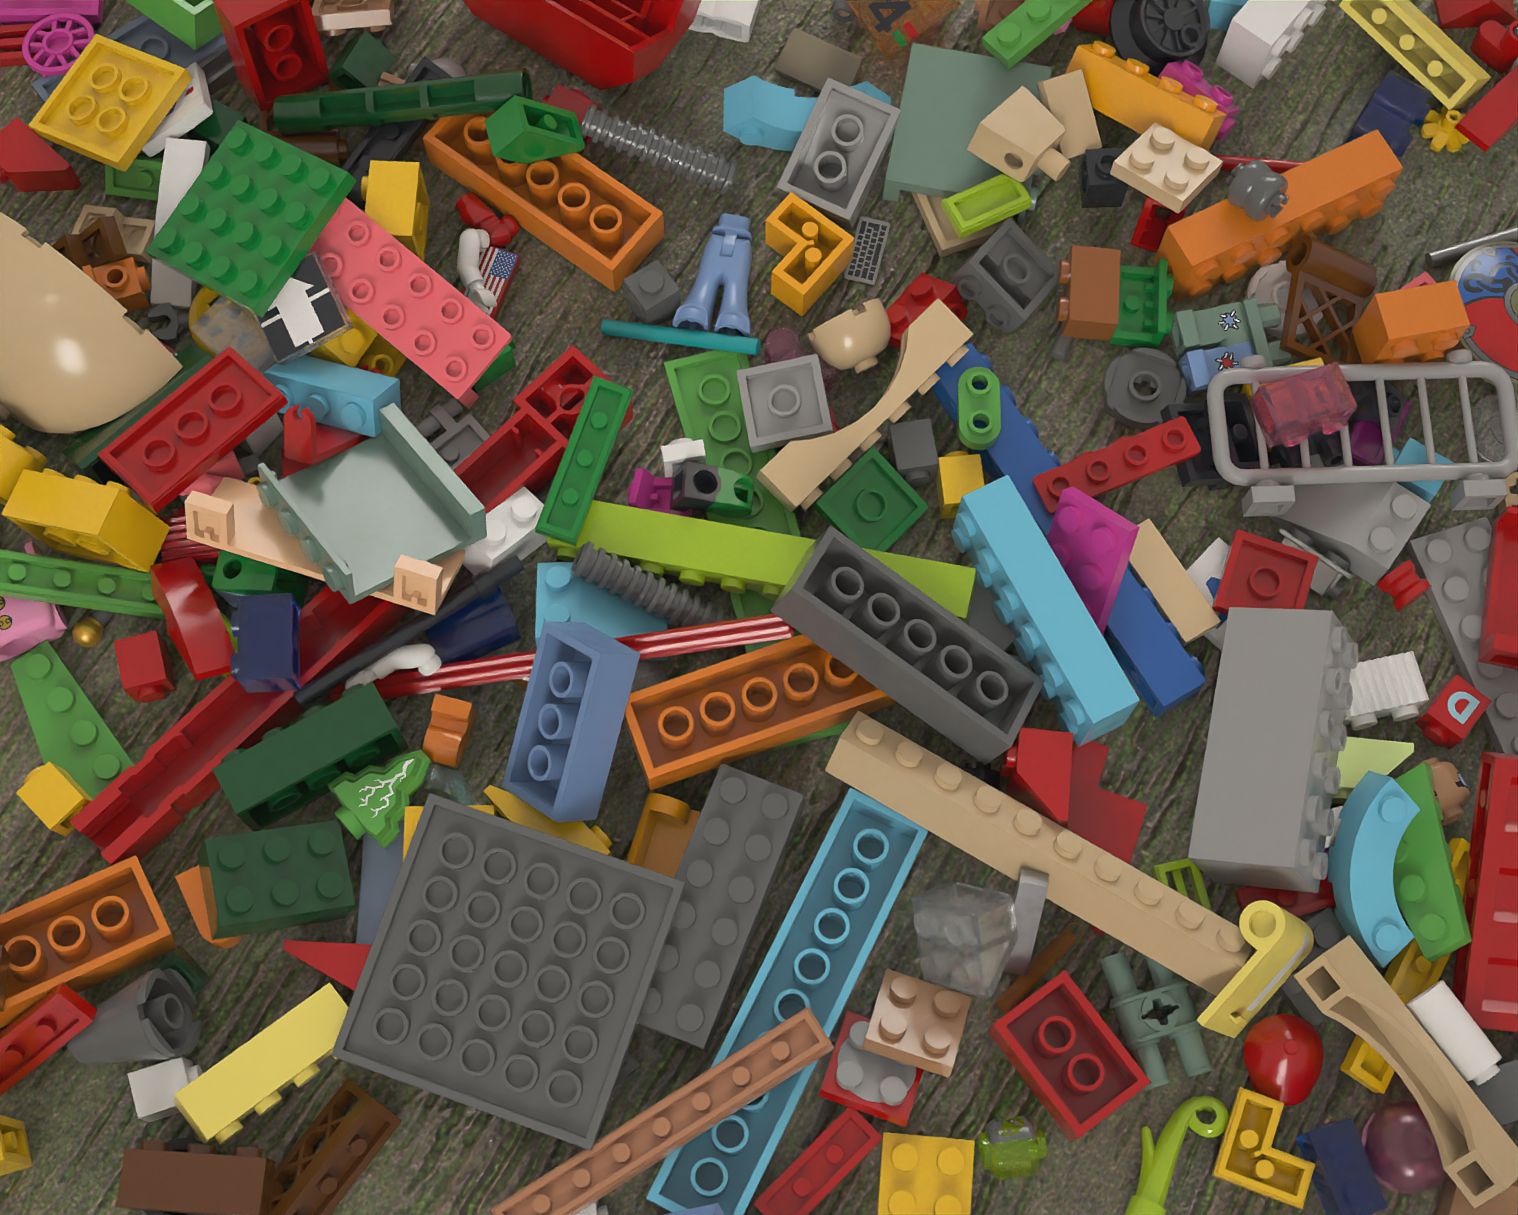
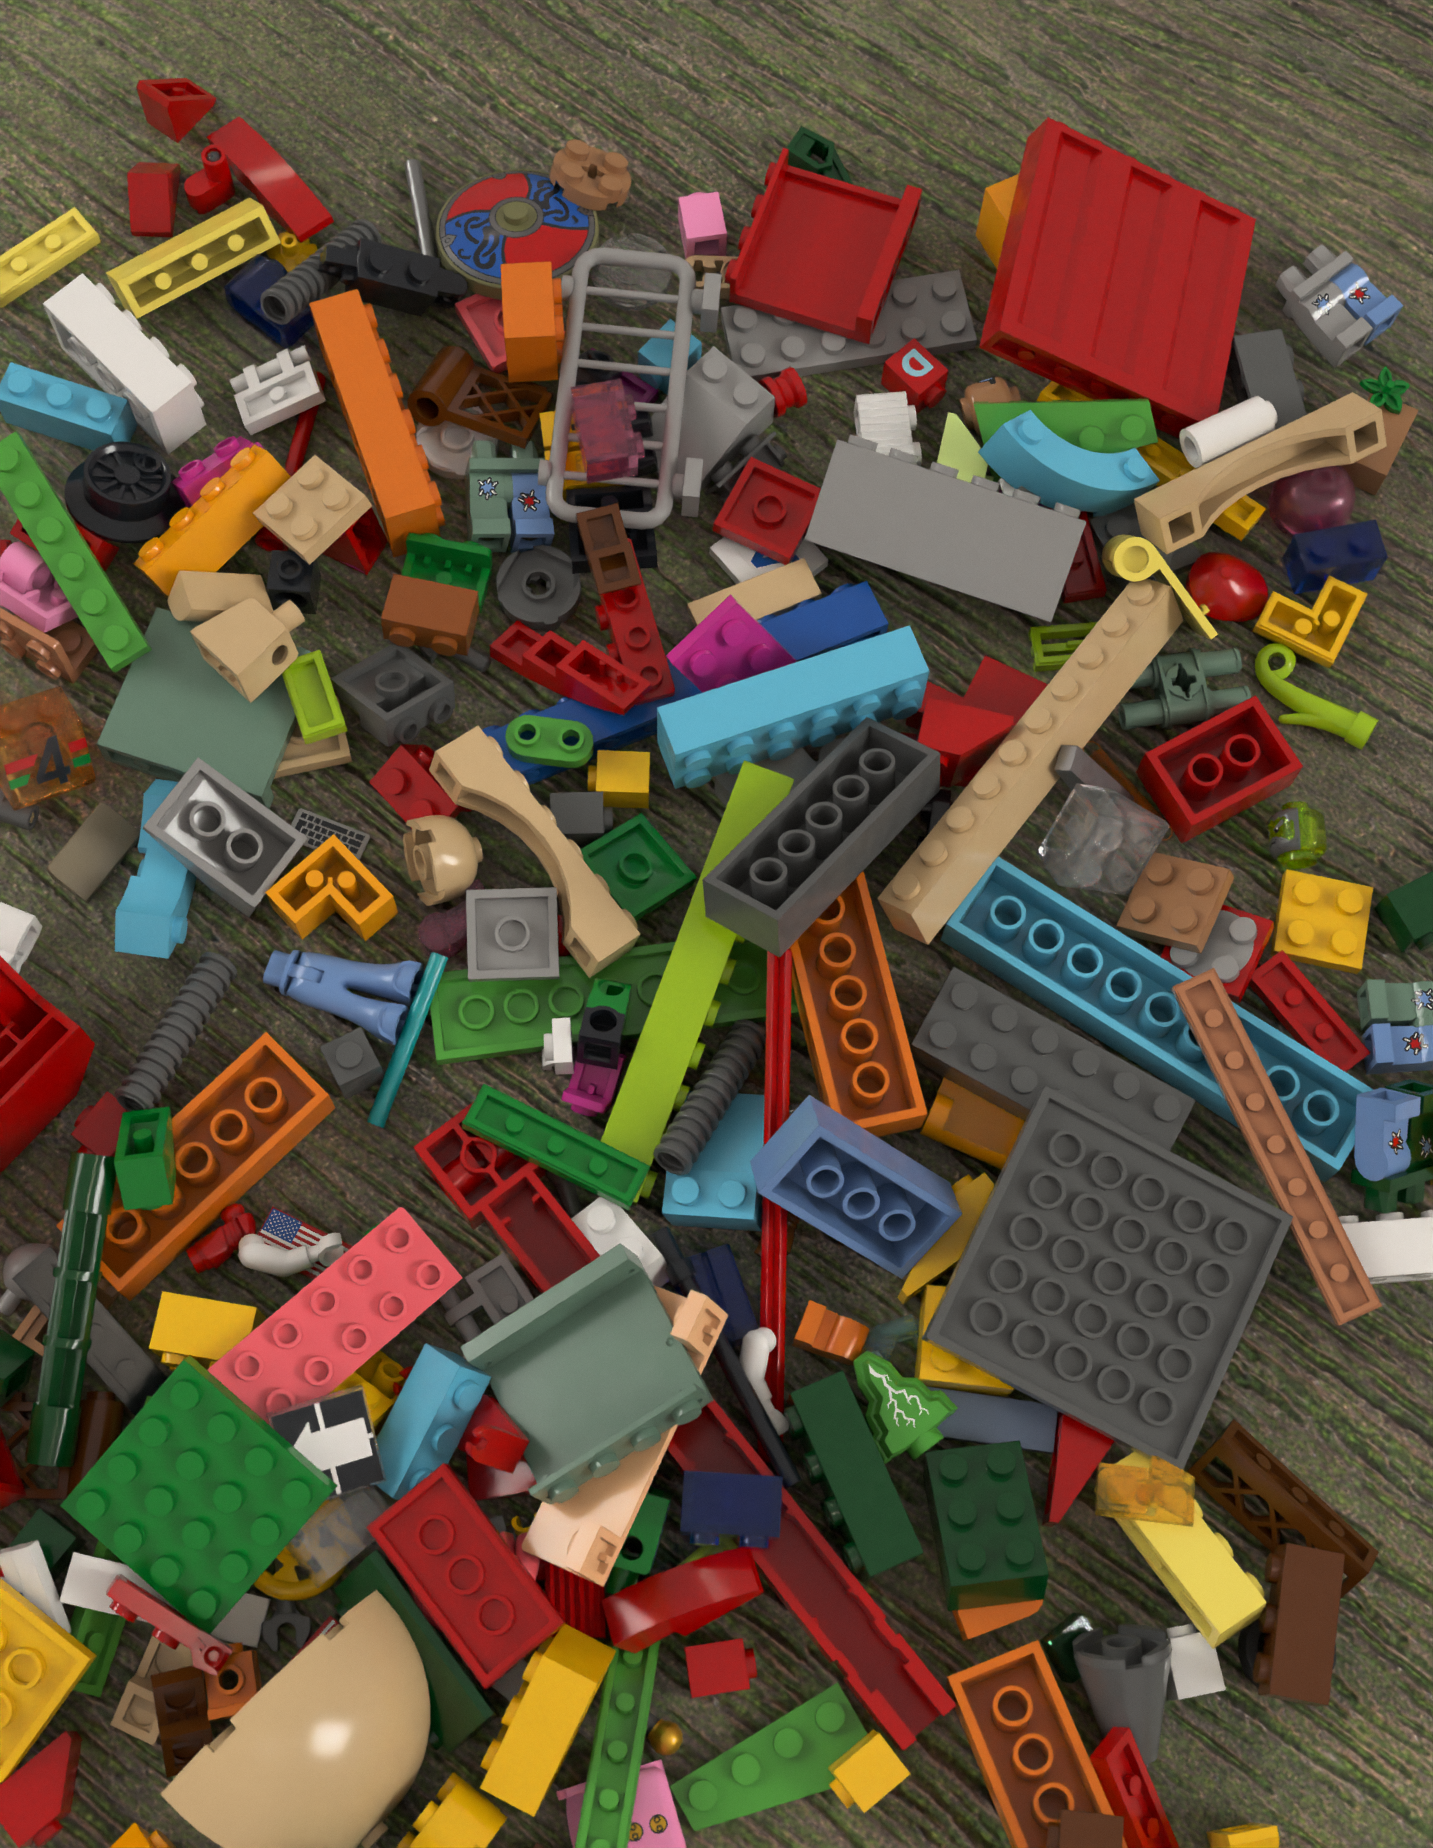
camera: 85 degrees left, 0 degrees up
(165, 192) = (170, 1625): none -> red hinge
(308, 1022) = (1145, 1494): none -> clear yellow slope
(1057, 418) = (570, 670): none -> red slope
(1179, 427) = (608, 549): none -> reddish brown slope
(1257, 190) = (368, 421): dark grey piece -> none
(1294, 131) = (277, 389): none -> white plate
(1424, 144) = (305, 283): none -> dark grey piece
(1432, 204) = (393, 276): none -> black hinge

